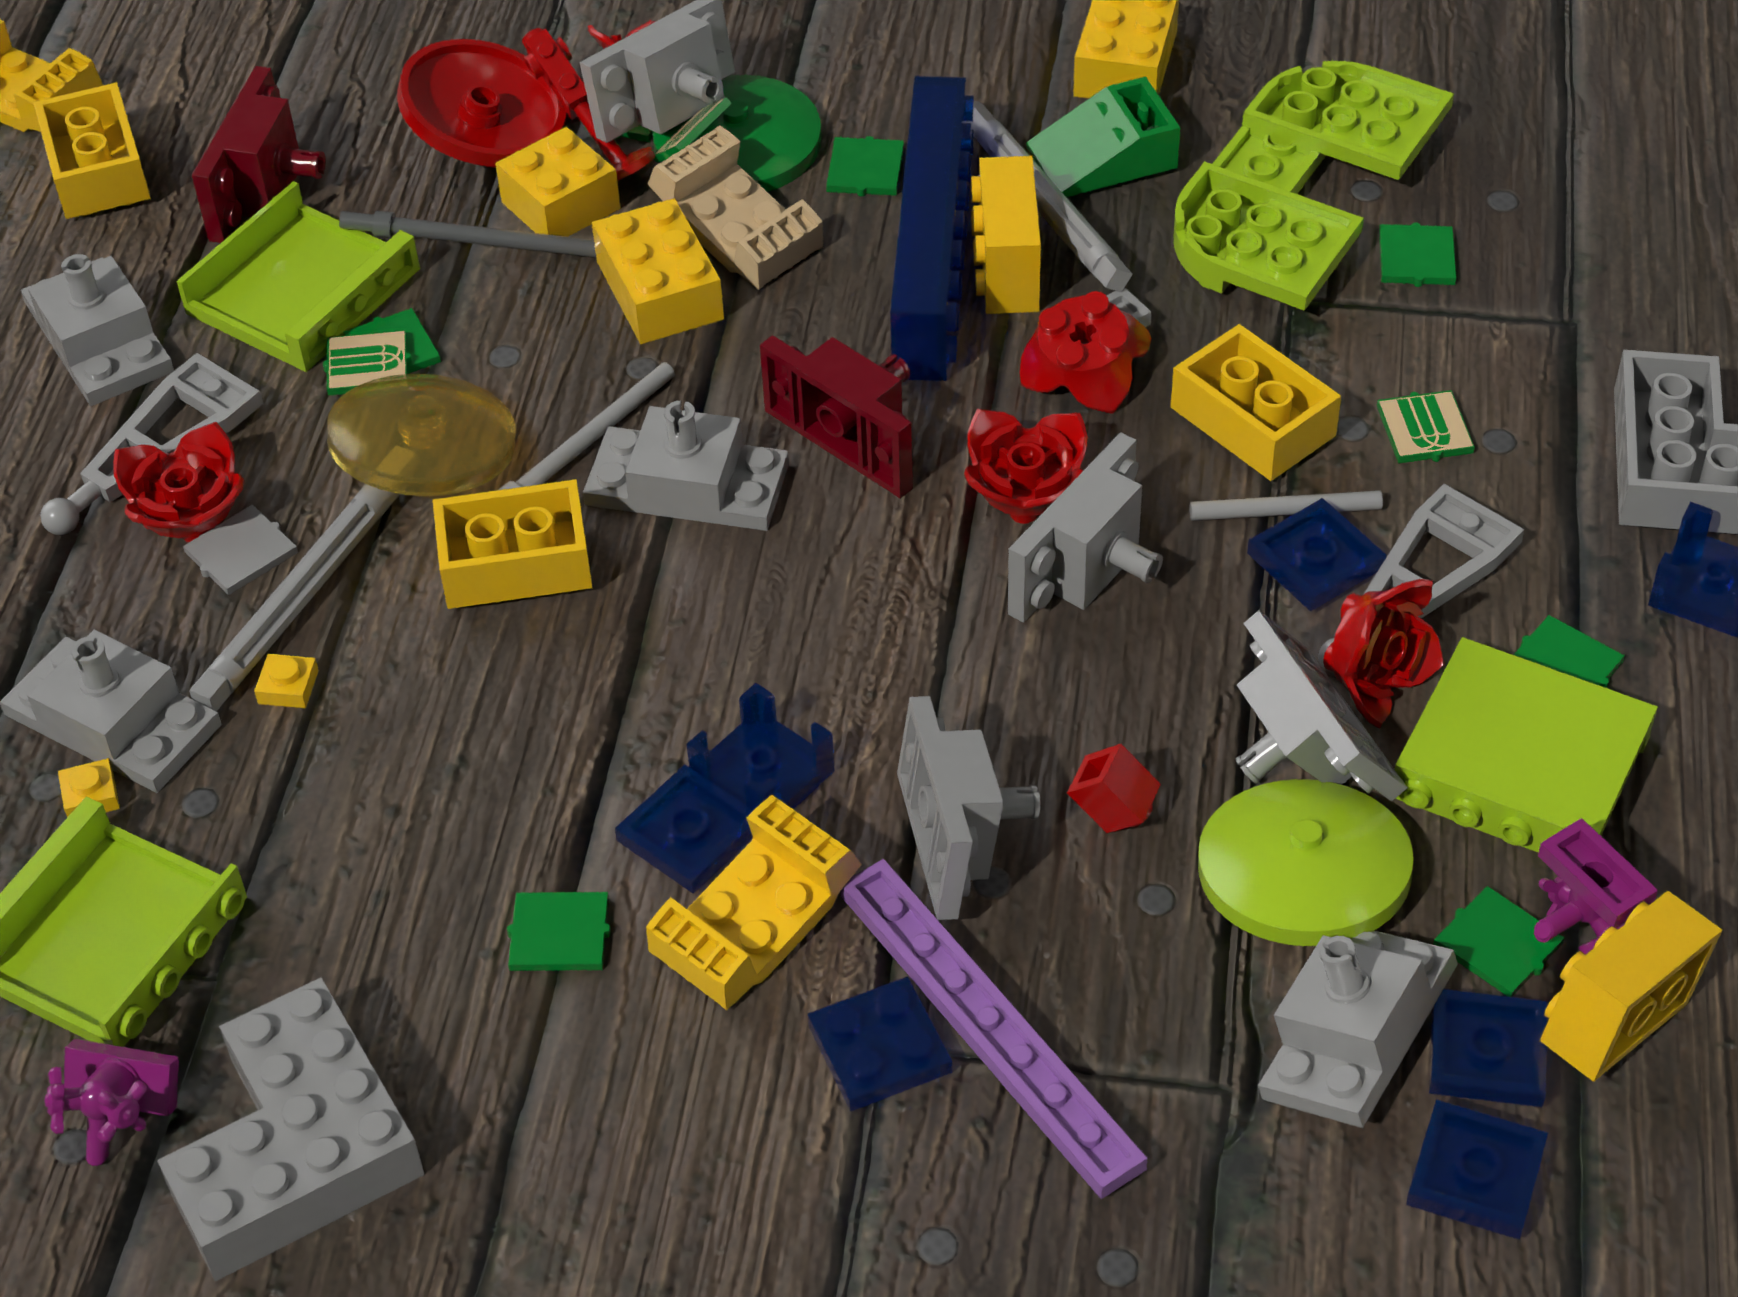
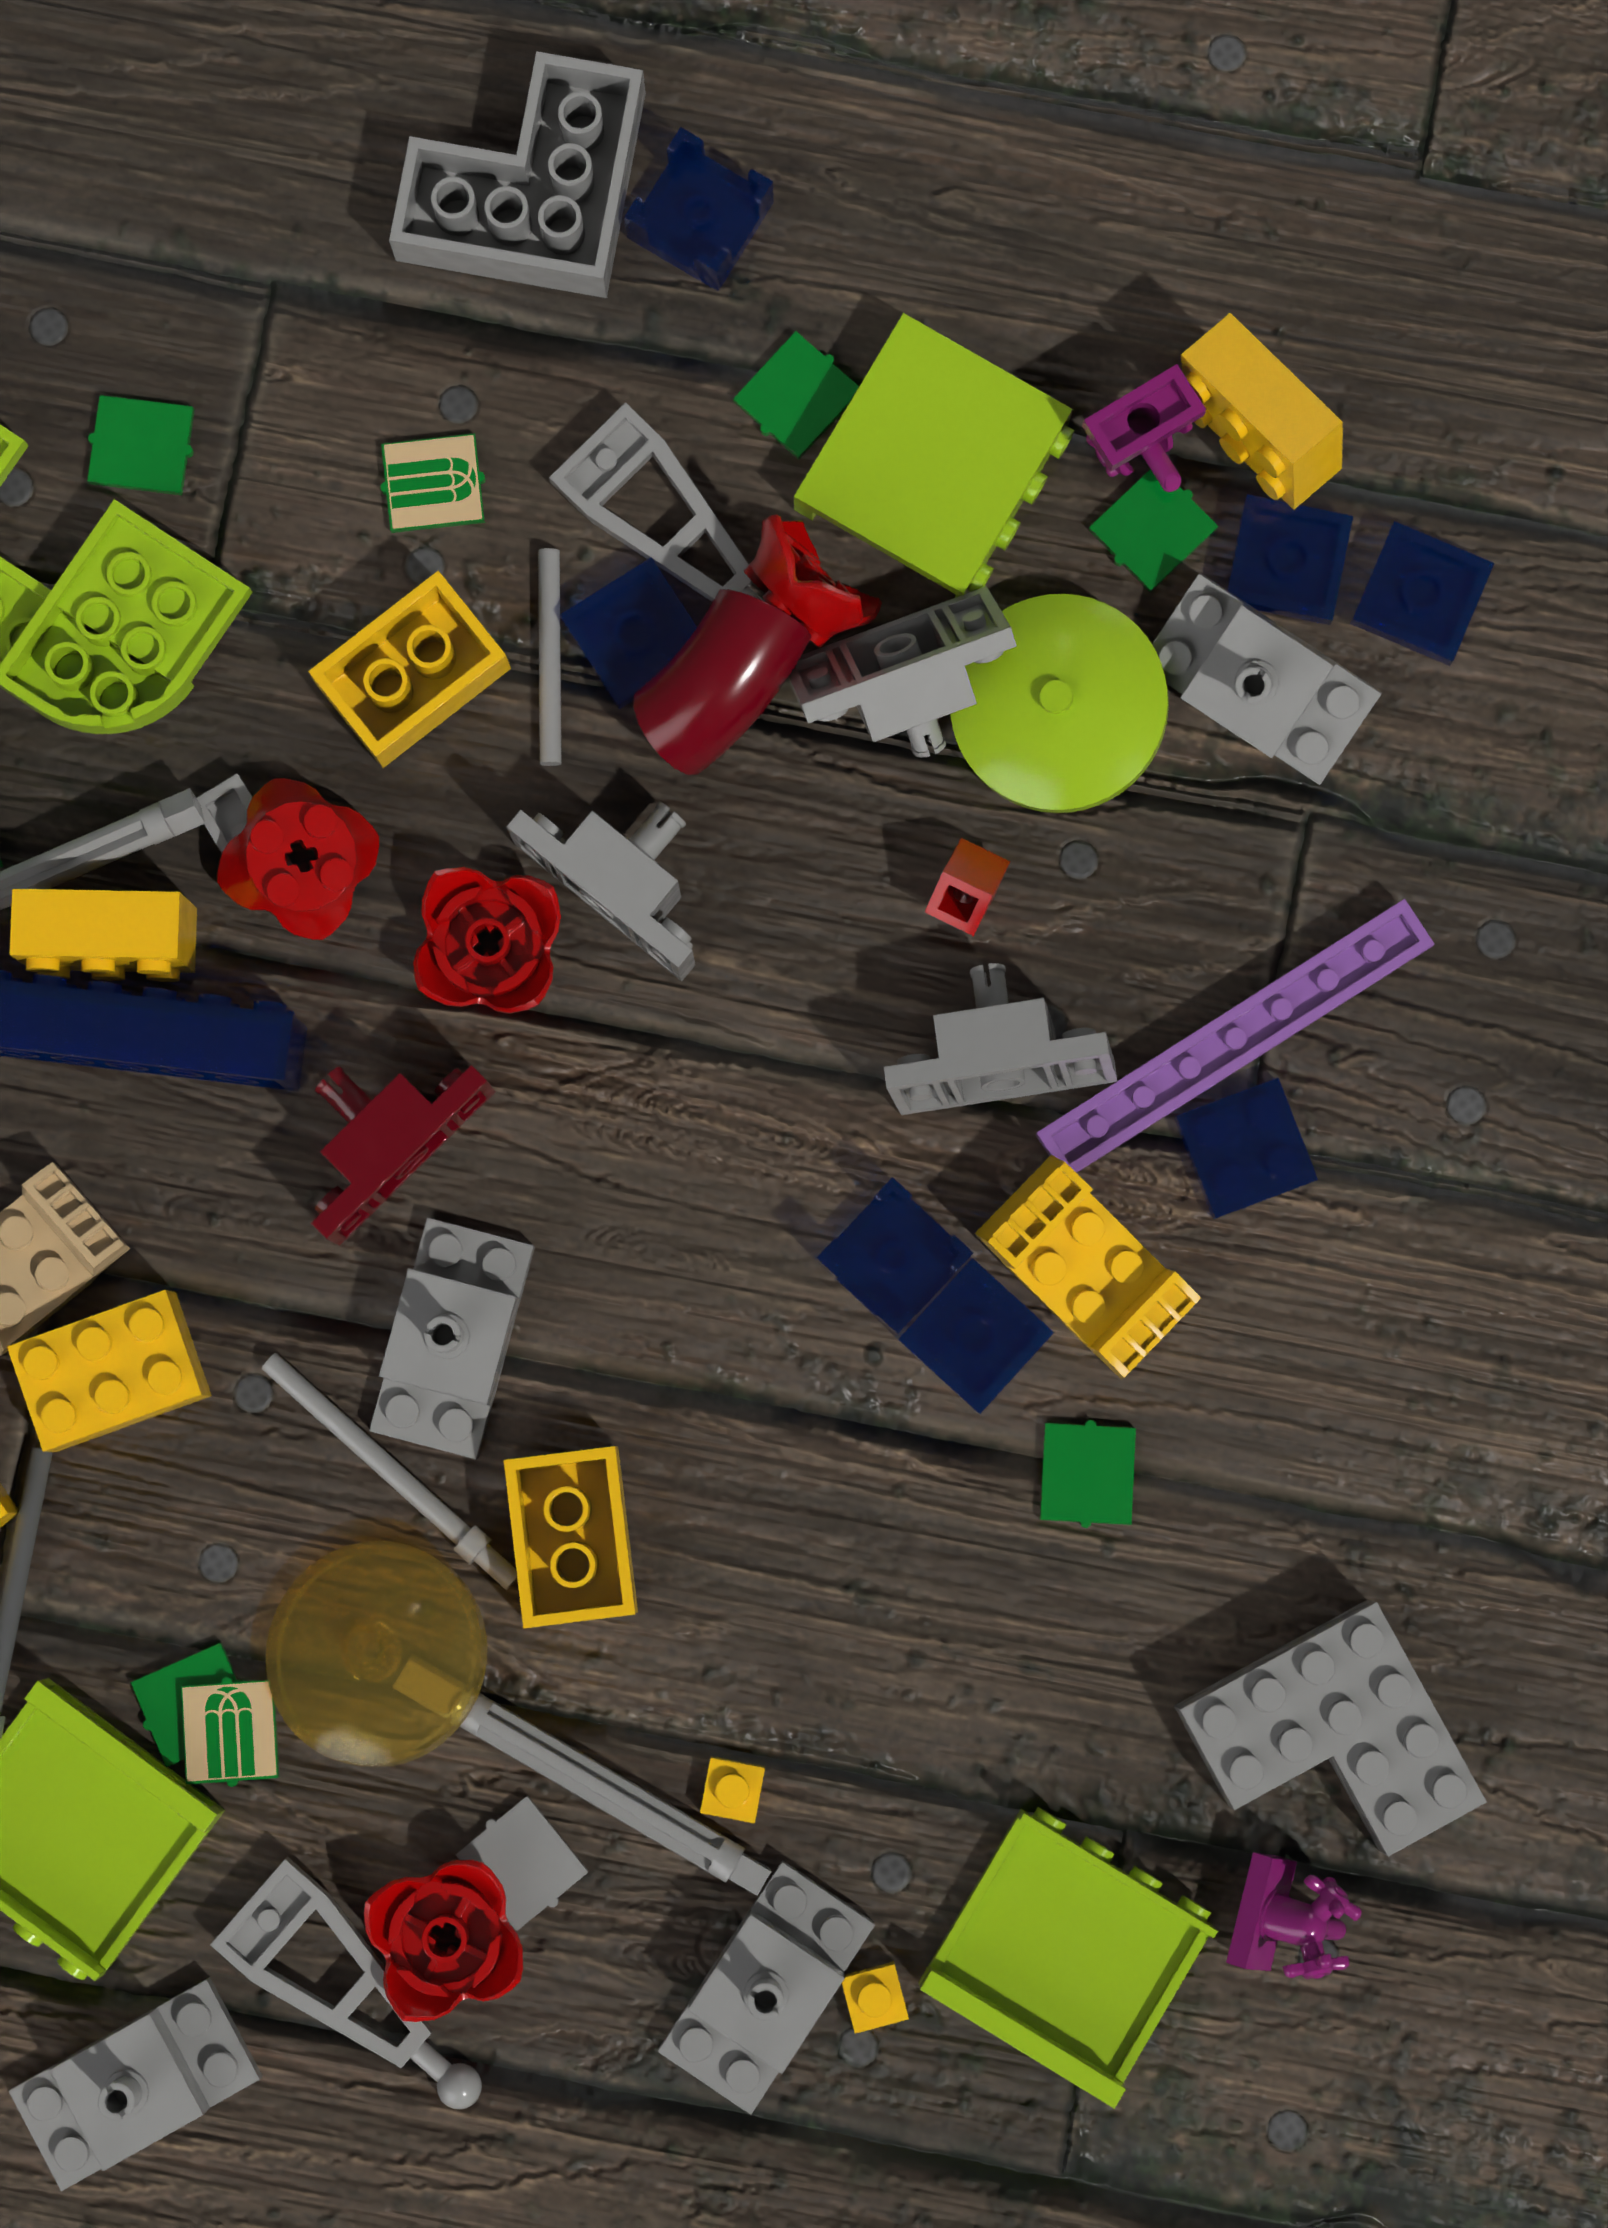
camera: 90 degrees left, 35 degrees up
(1289, 581) = (719, 680): none -> dark red brick

